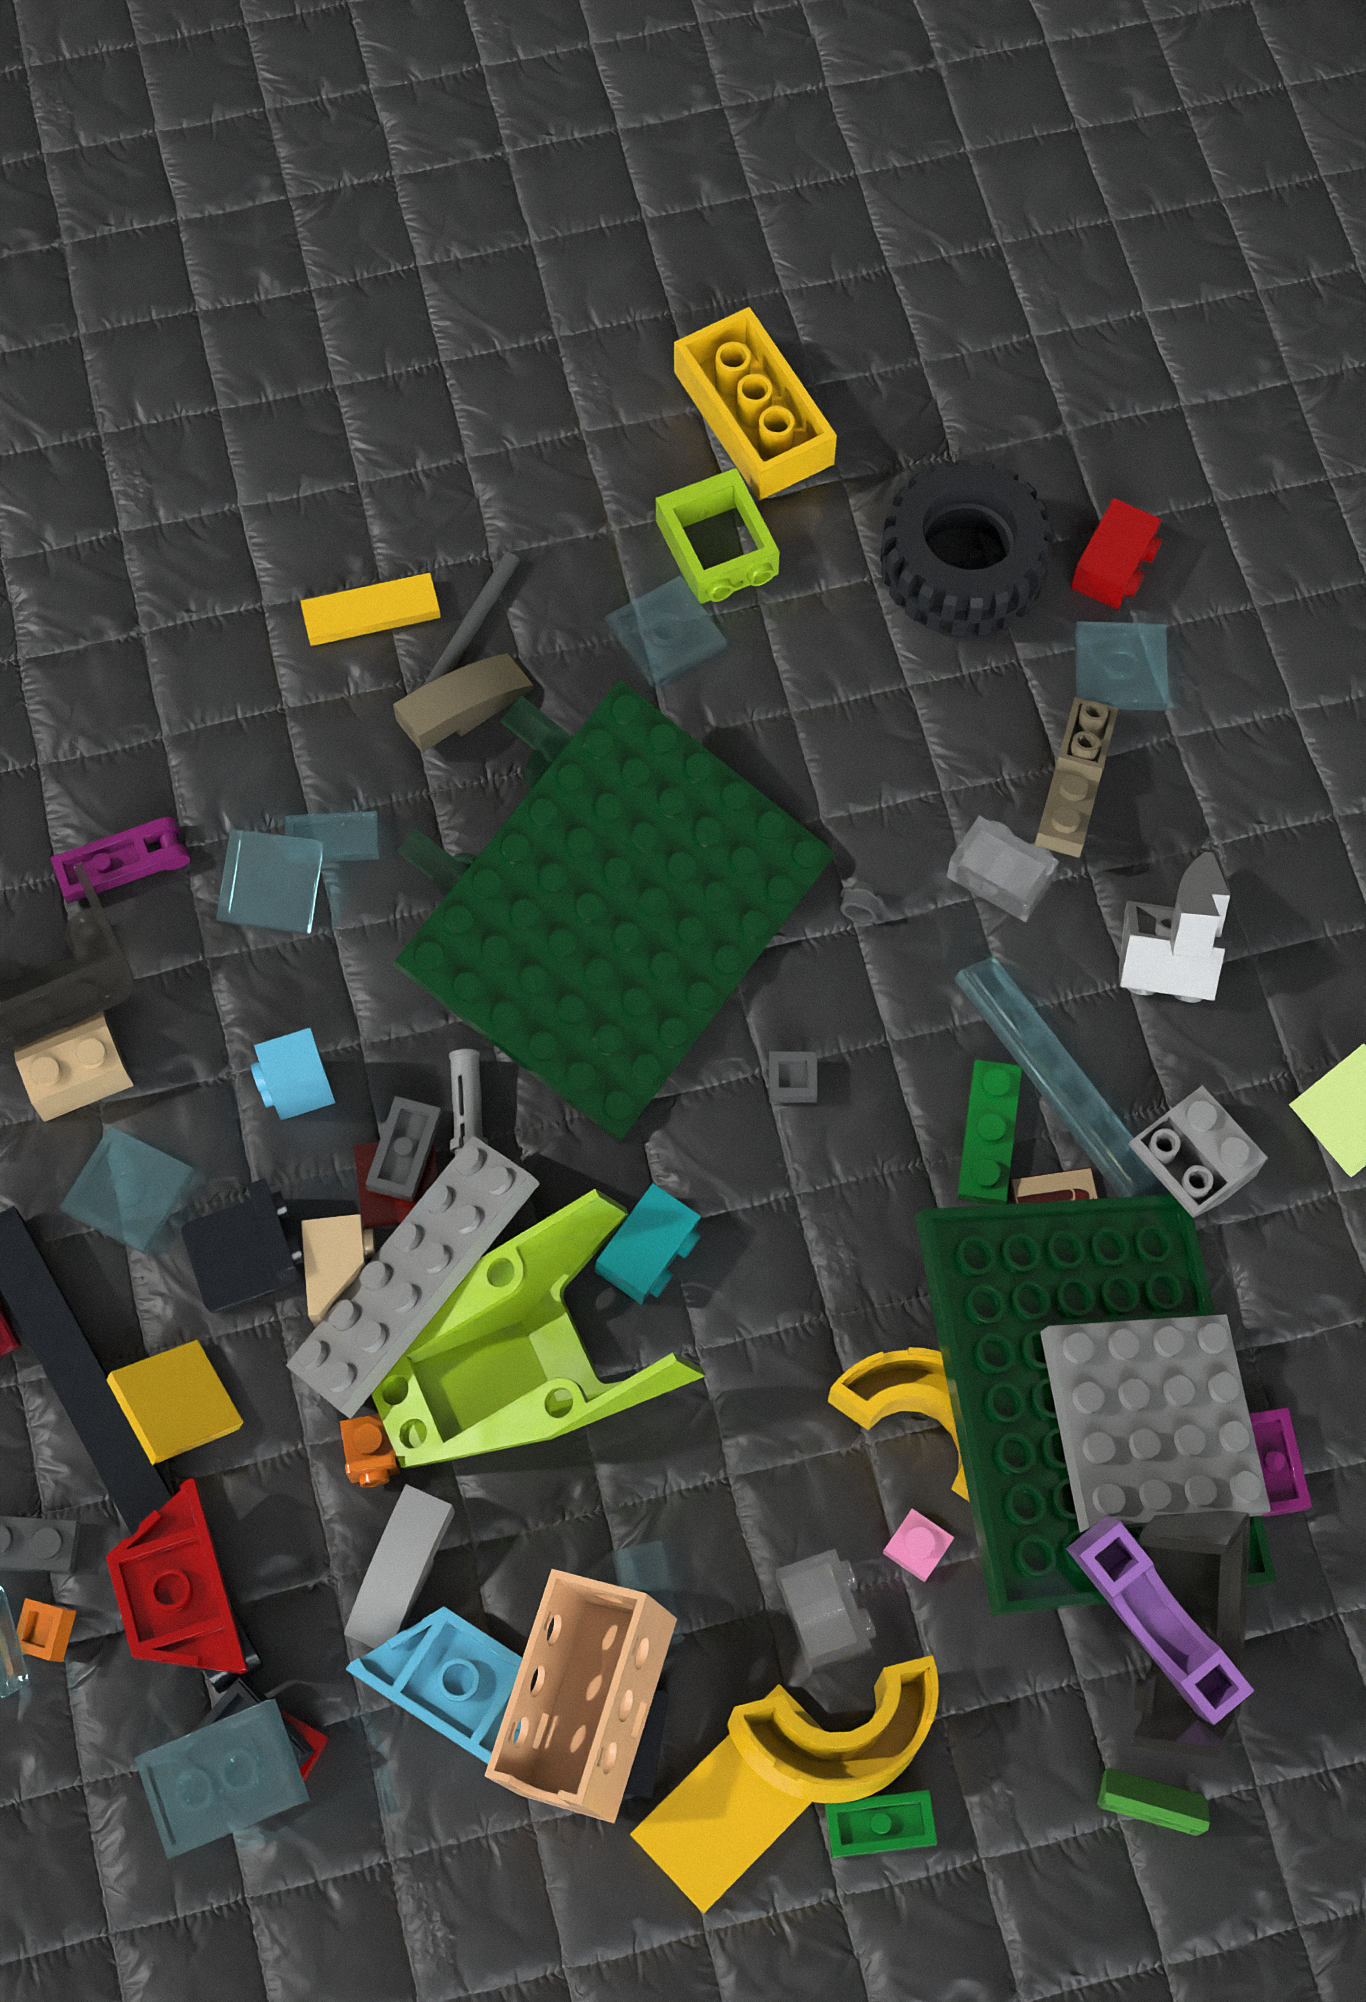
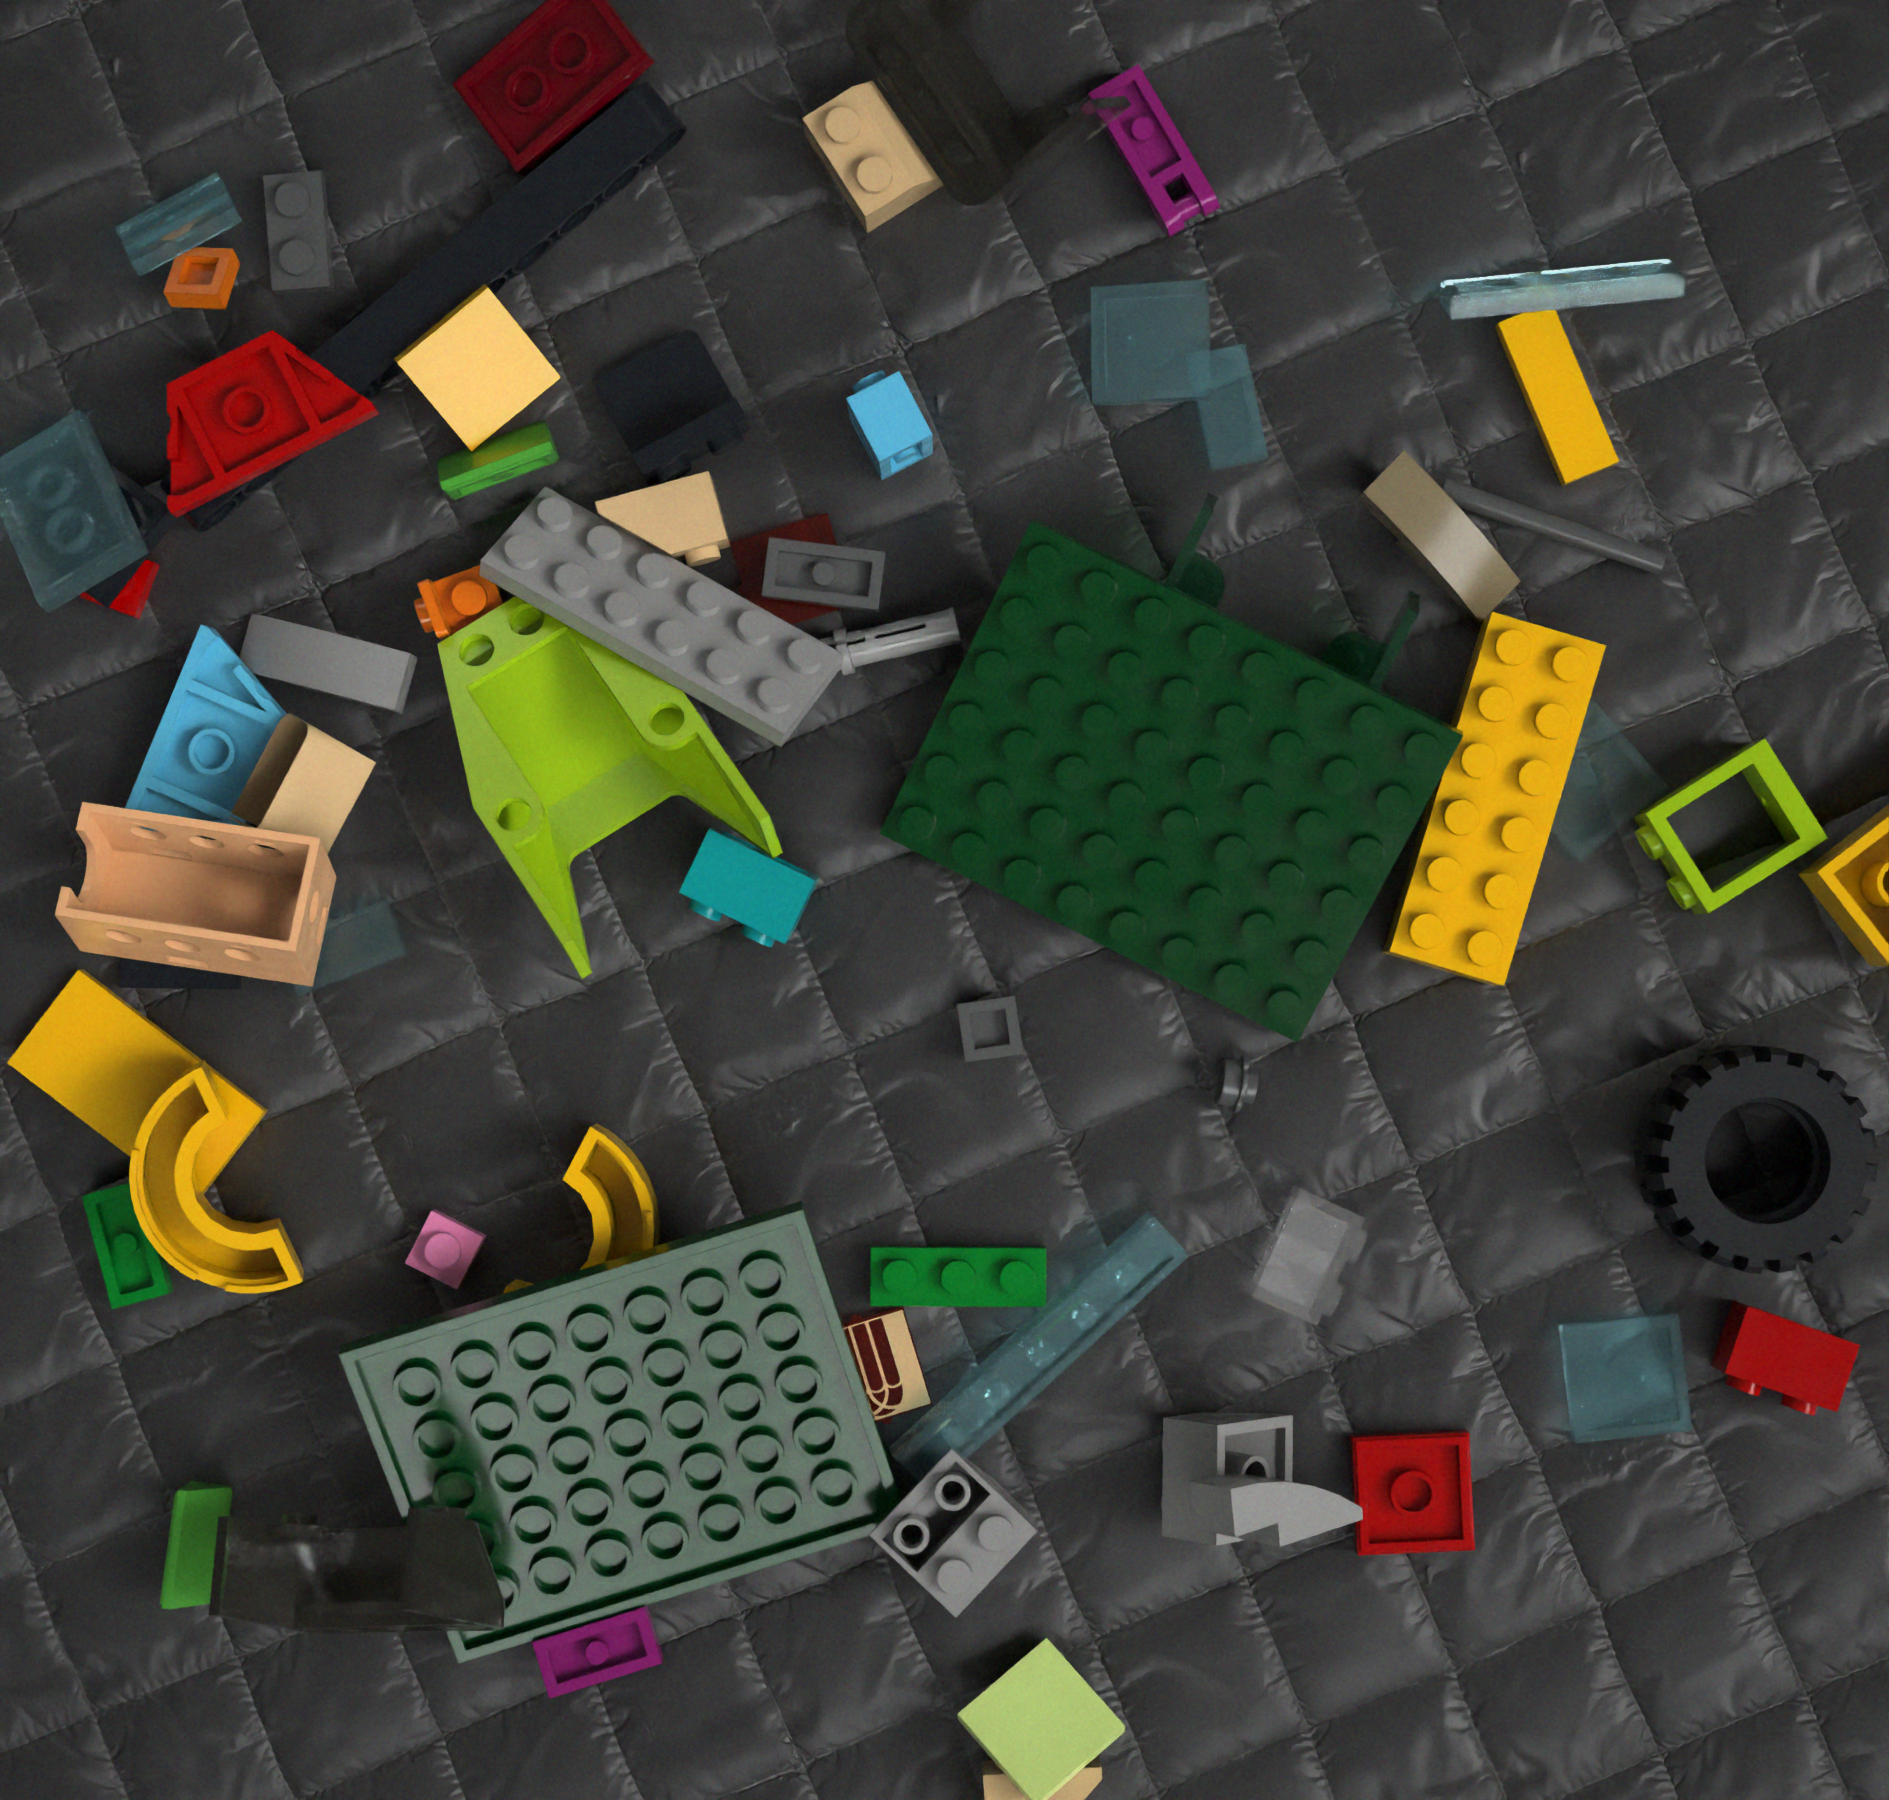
camera: 80 degrees right, 20 degrees up
(127, 1190) = (732, 255): clear light blue tile -> none
(254, 1402) = (497, 460): none -> bright green slope
(293, 592) = (1561, 289): none -> clear light blue tile
(496, 1597) = (303, 783): none -> tan piece
(720, 701) = (1495, 799): none -> yellow brick
(825, 1611) = (349, 1151): clear brick -> none
(1076, 777) = (1445, 1335): dark tan slope -> none
(1153, 1419) = (606, 1508): light grey plate -> none
(1158, 1621) = (342, 1559): medium lavender arch -> none
(1195, 819) = (1412, 1492): none -> red tile

